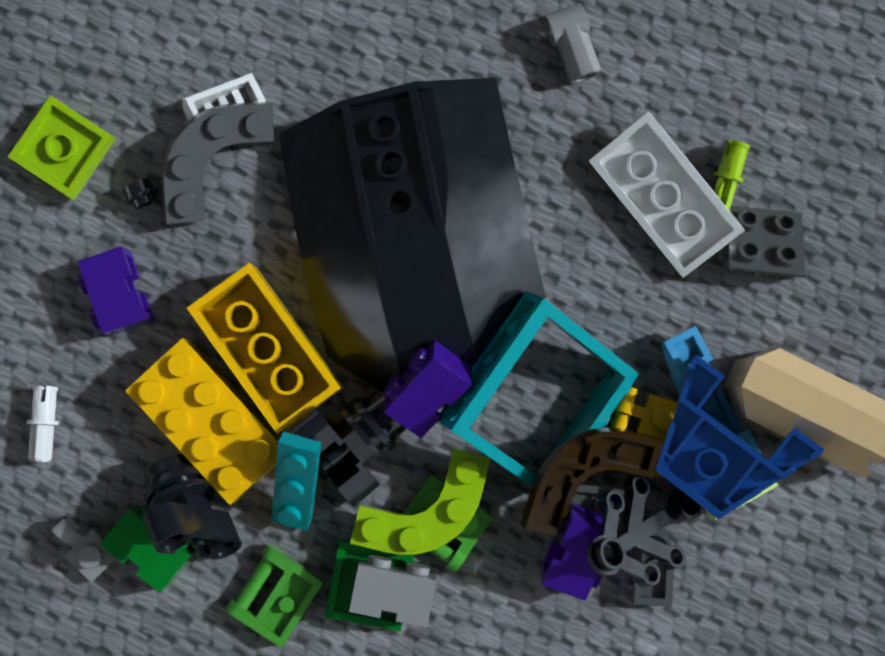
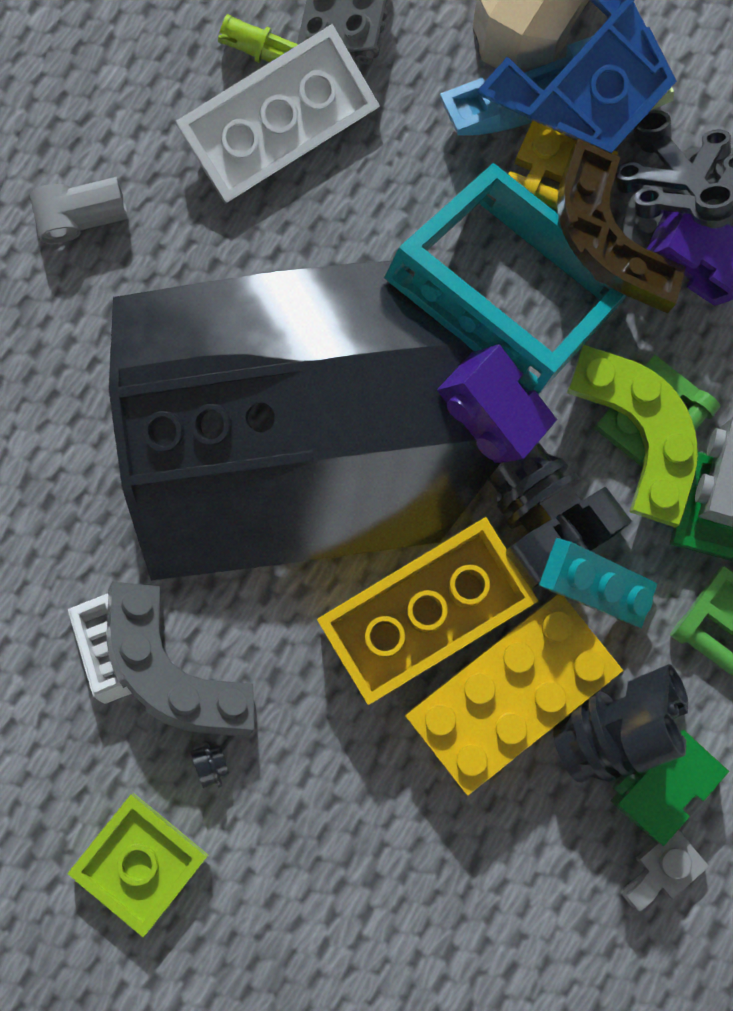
camera: 80 degrees left, 5 degrees down
(42, 423) = (500, 916): white axle -> none
(112, 292) = (336, 809): dark purple brick -> none

